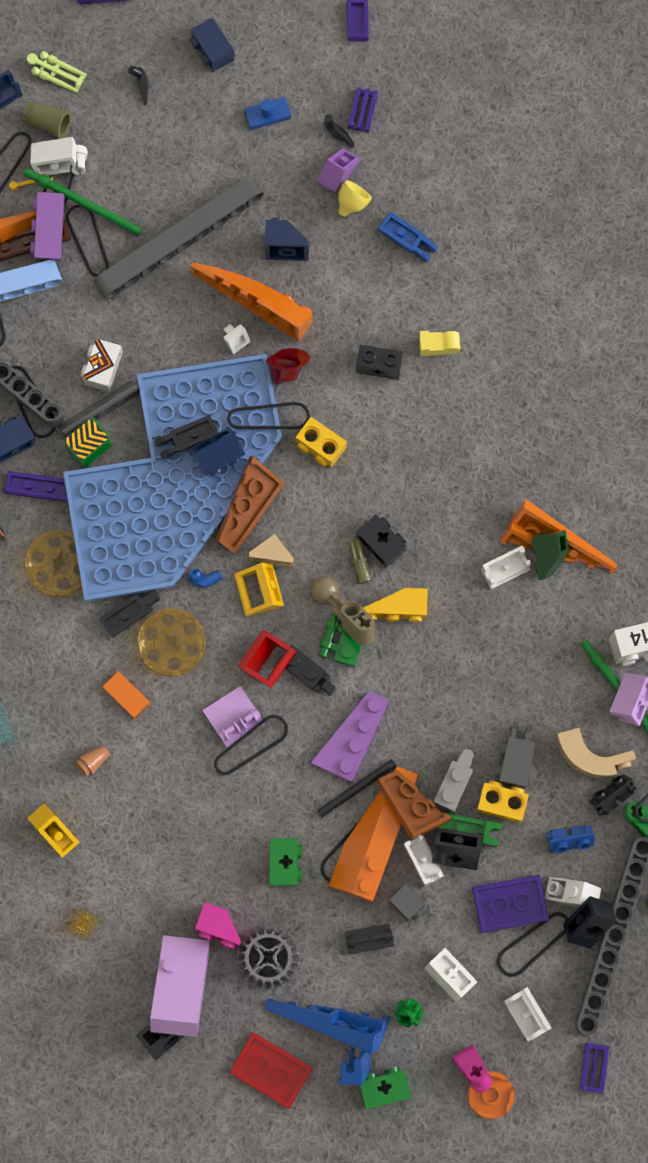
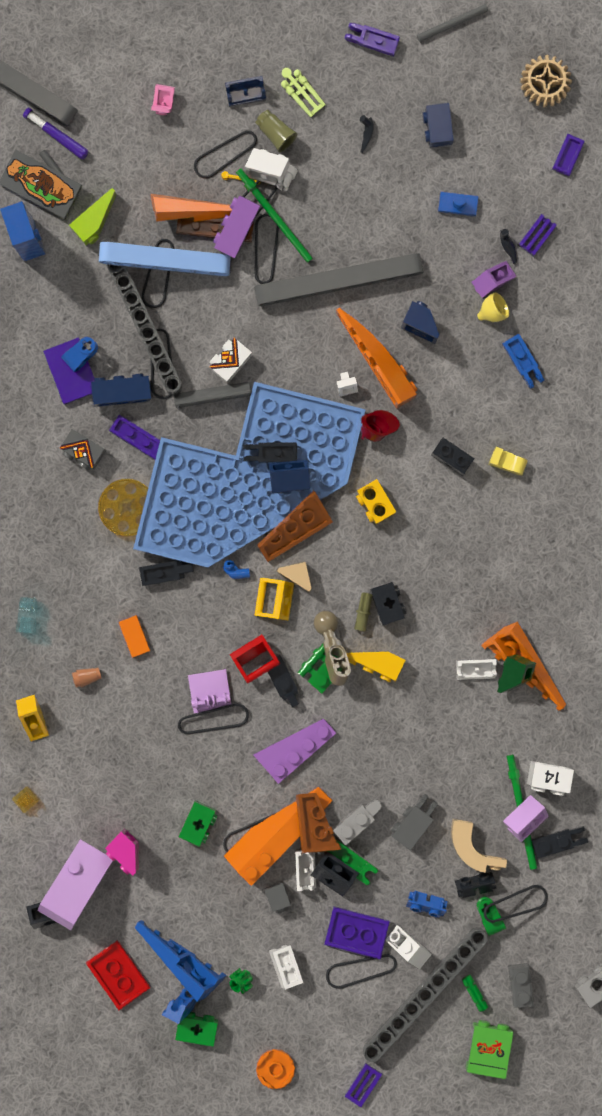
camera: 30 degrees right, 10 degrees up
(88, 442) = (191, 420): piece -> none
(175, 631) = (196, 614): clear yellow wedge -> none
(268, 406) = (341, 472): black piece -> none
(282, 973) = (150, 882): flat silver gear -> none
(356, 788) = (280, 789): black bar -> none
(369, 939) = (236, 910): black hinge -> none
(473, 1069) = (270, 1043): dark pink piece -> none
(501, 808) = (383, 856): yellow brick -> none
(527, 1014) = (330, 1022): white hinge -> none
(589, 922) = (409, 977): black brick -> none

